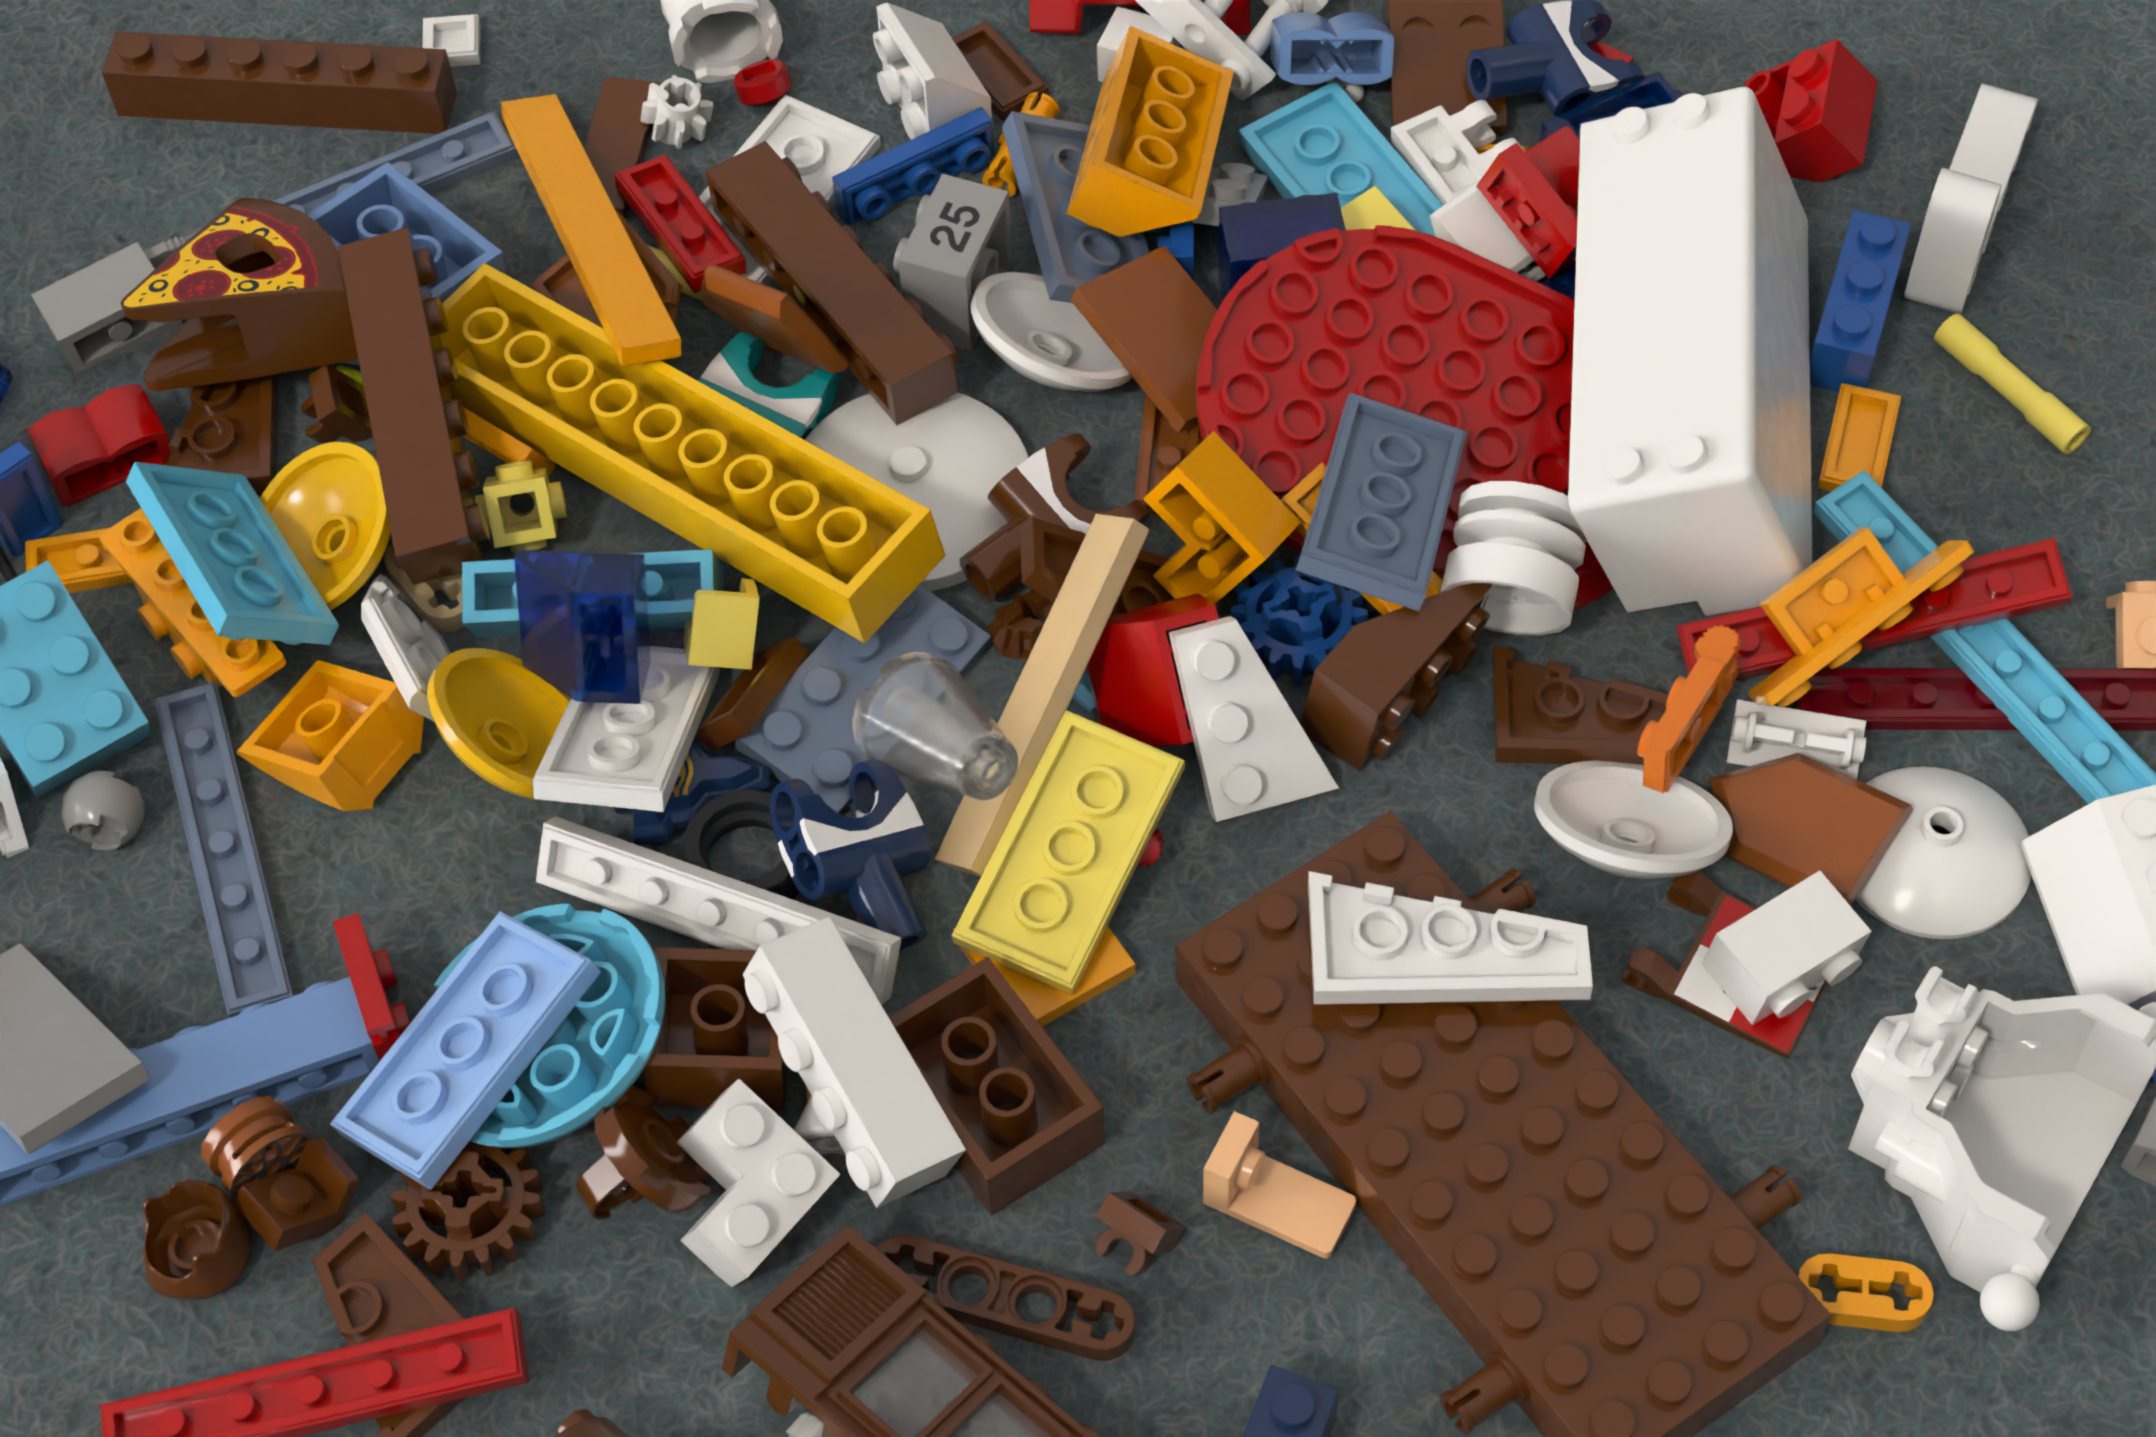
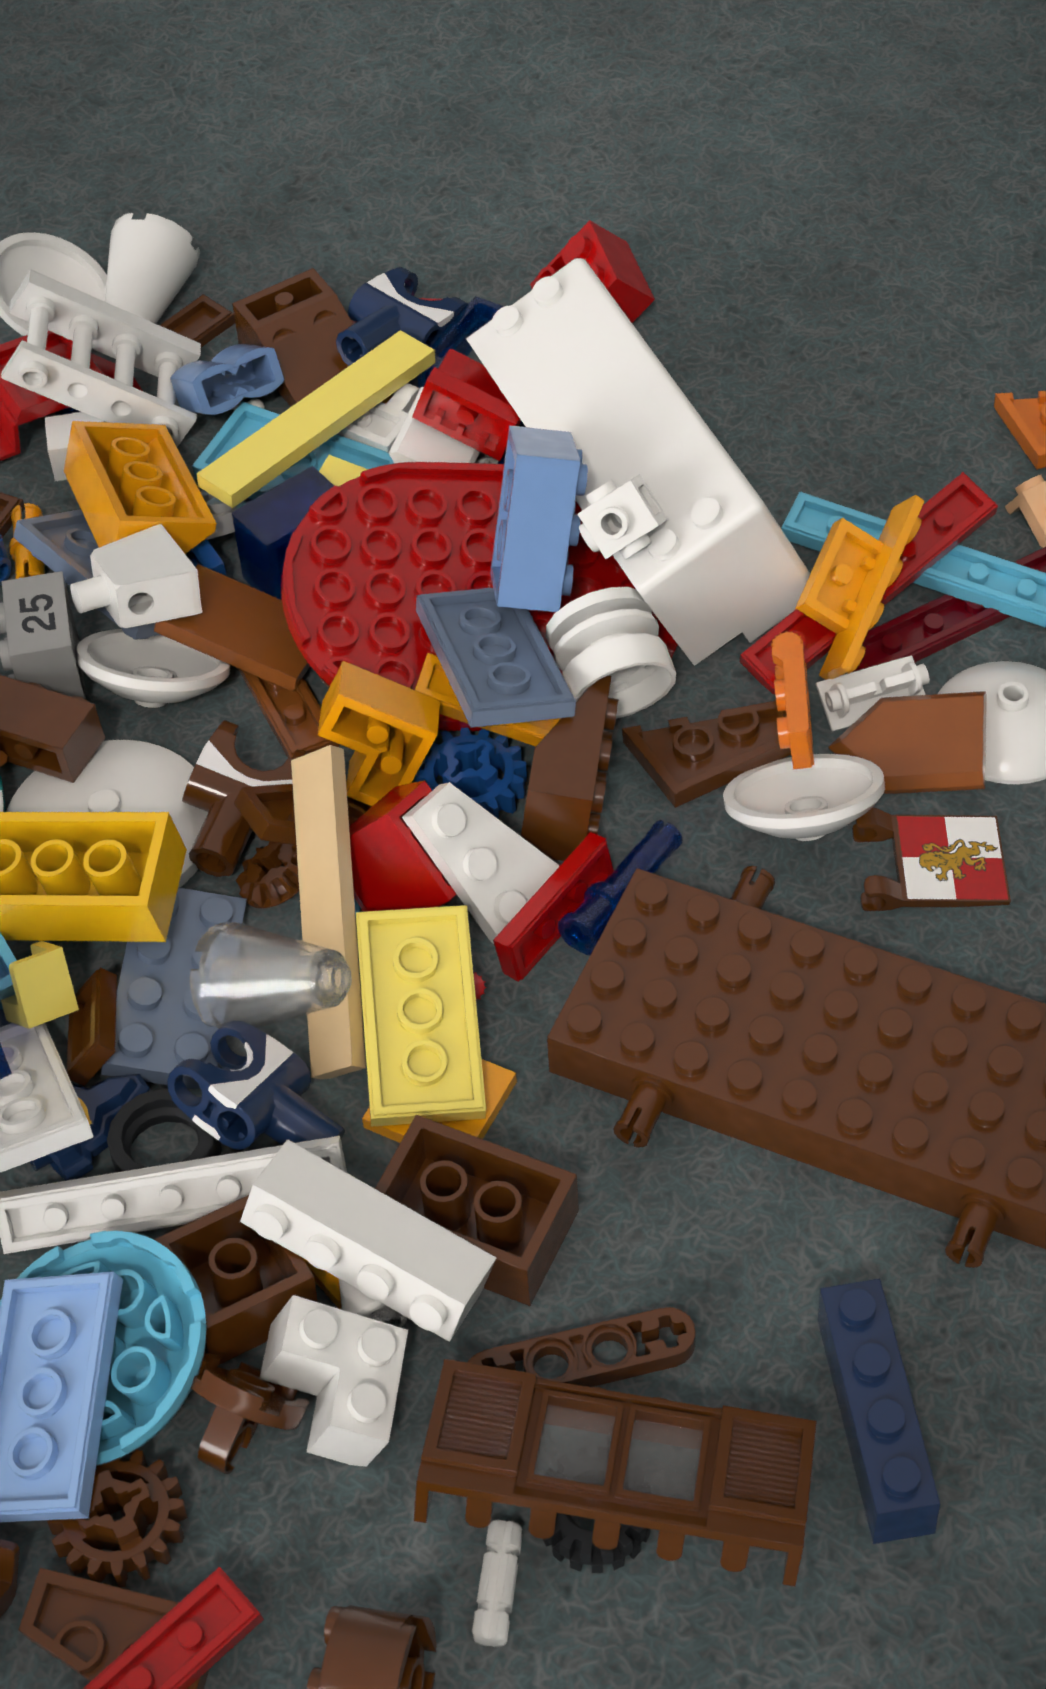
camera: 30 degrees left, 5 degrees down
(1079, 238) = (140, 580): none -> white torso
(1141, 1225) = (648, 1251): reddish brown tile -> none
(1271, 1194) = (729, 1179): light nougat bracket -> none
(1290, 806) = (536, 924): none -> red tile
(1387, 138) = (315, 419): none -> light yellow tile
(1411, 806) = (585, 926): none -> clear blue pin
(1422, 951) = (725, 950): white wing -> none
(1511, 369) = (537, 519): none -> medium blue brick
(1588, 414) = (633, 505): none -> white brick
(1787, 949) = (966, 827): white brick -> none
(1858, 301) = (716, 385): blue brick -> none
(1859, 436) = (772, 475): light orange tile -> none
(1969, 199) = (749, 292): white beam -> none
(2039, 407) = (878, 404): light yellow piece -> none

